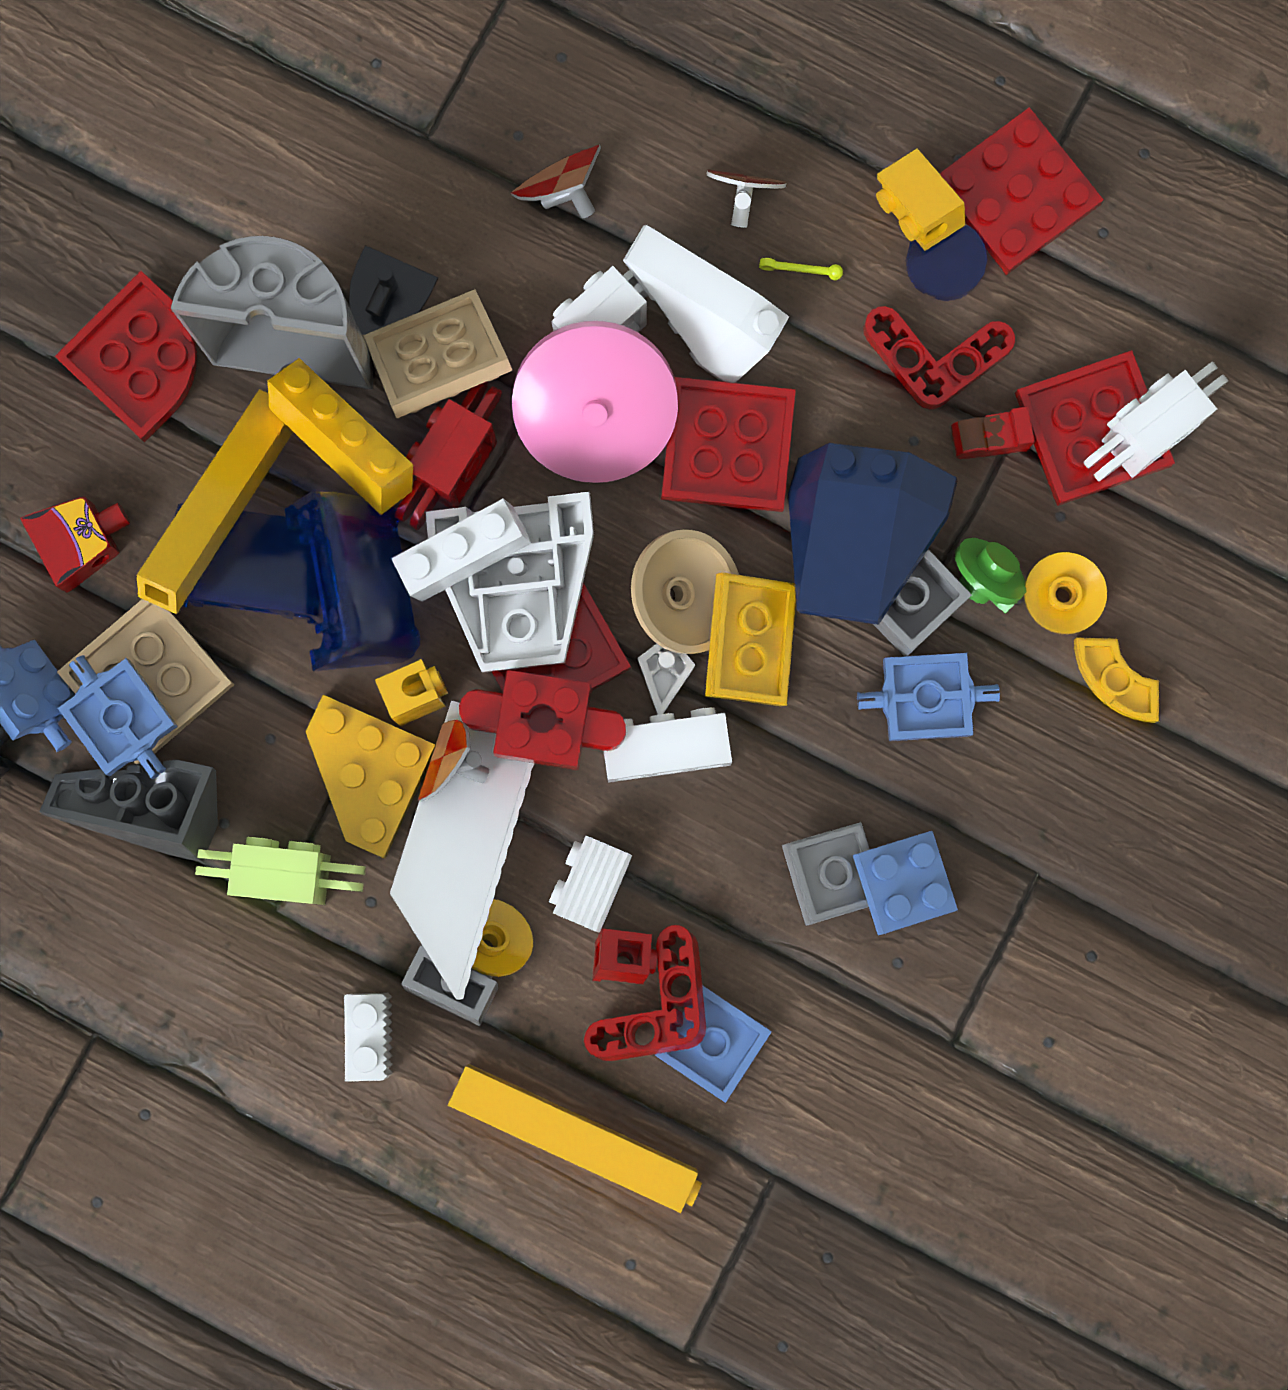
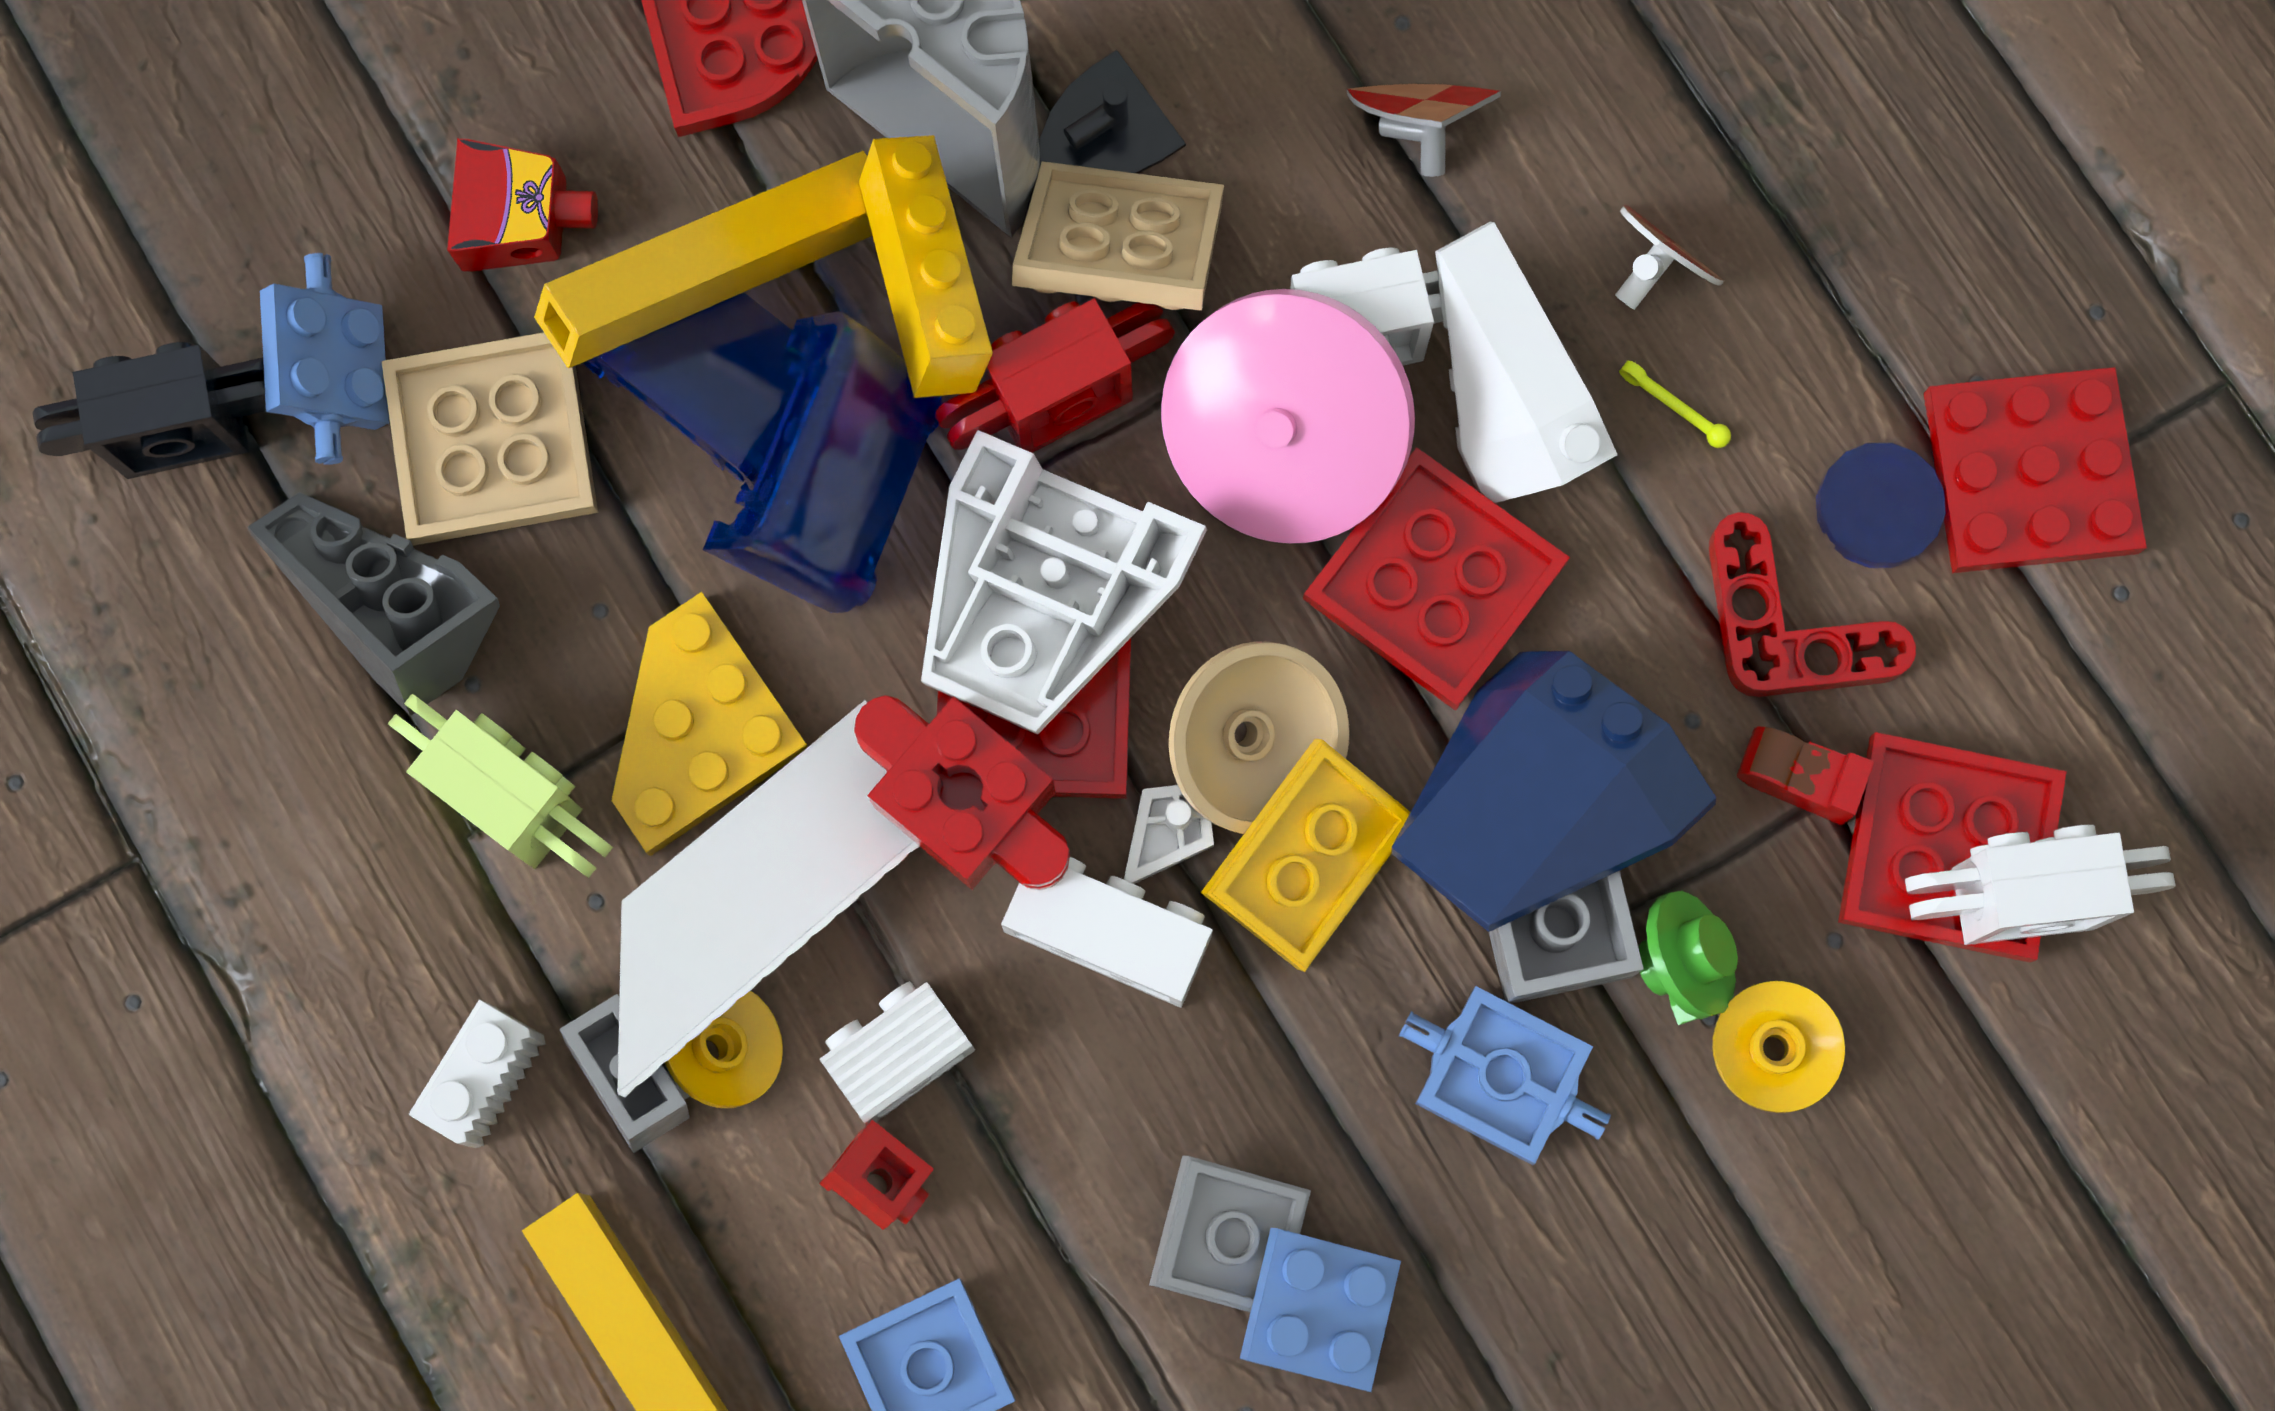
camera: 35 degrees right, 5 degrees down
(117, 717) = (418, 462): medium blue plate -> none
(412, 692) = (814, 655): yellow brick -> none
(452, 757) = (809, 772): shield -> none
(461, 550) = (989, 504): white brick -> none
(665, 1020) = (885, 1296): red beam -> none
(920, 200) = (1889, 404): yellow brick -> none
(1115, 681) = (1778, 1211): yellow tile -> none

